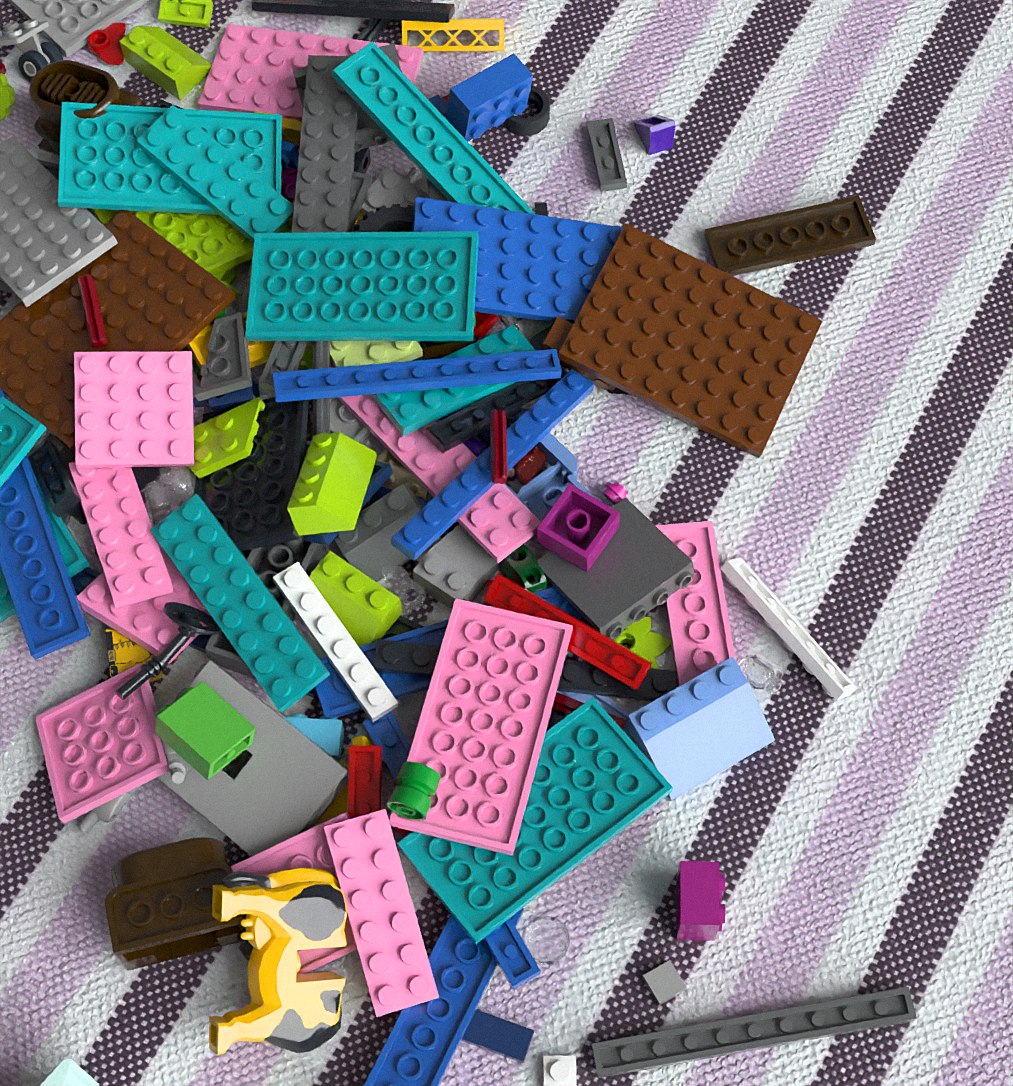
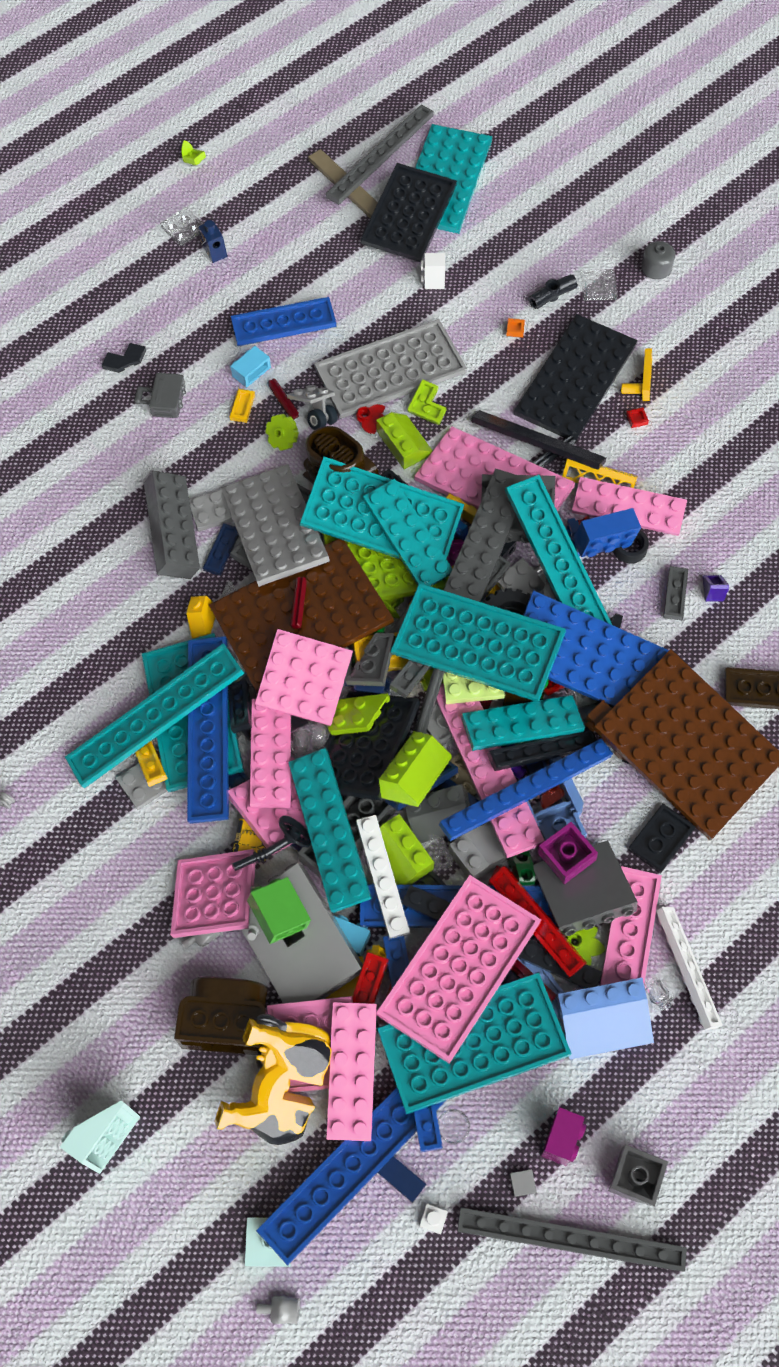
camera: 20 degrees right, 0 degrees up
(415, 787) = (401, 996): green wheel -> none
(416, 375) = (495, 713): blue plate -> none
(498, 446) = (532, 780): dark red axle -> none
(548, 55) = (652, 509): none -> bright pink plate
(614, 492) = (602, 833): dark pink plate -> none
(695, 475) = (661, 838): none -> black tile
(813, 916) = (638, 1176): none -> flat silver slope

